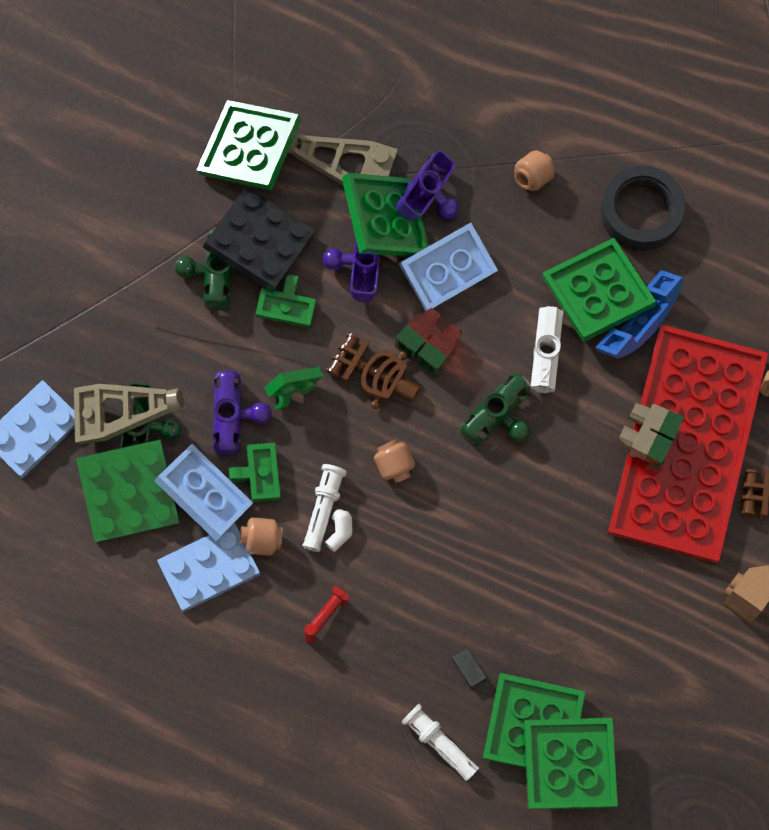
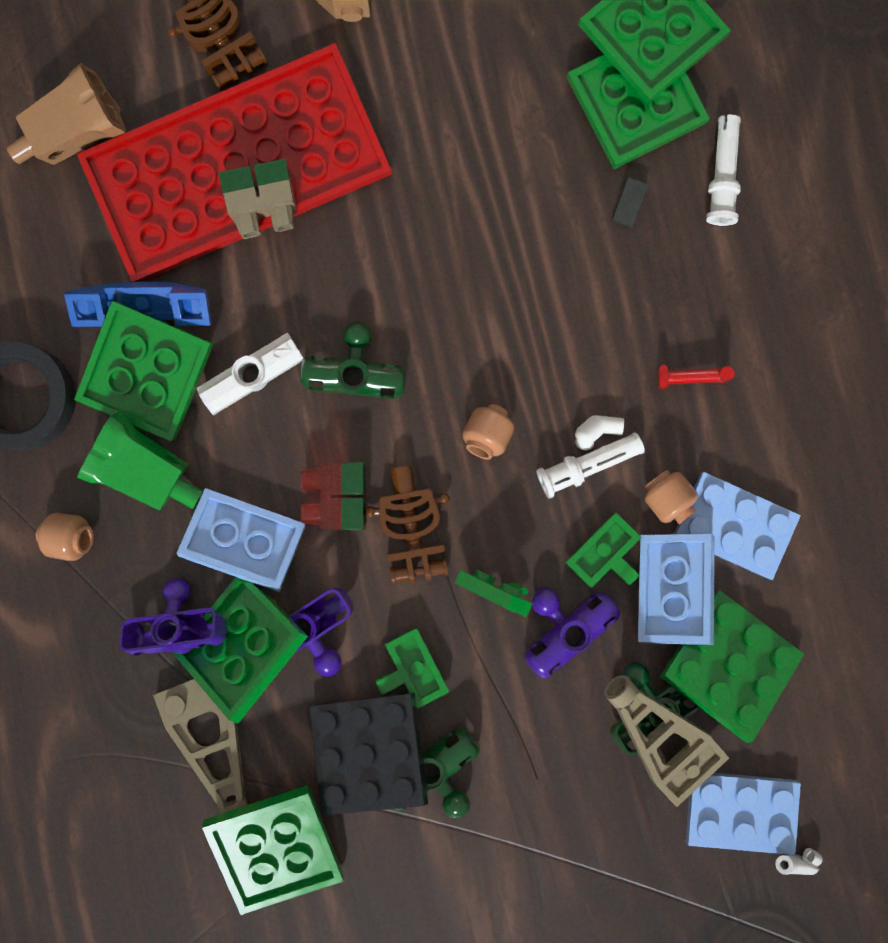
camera: 125 degrees left, 15 degrees up
(541, 241) = (137, 466): none -> green piece

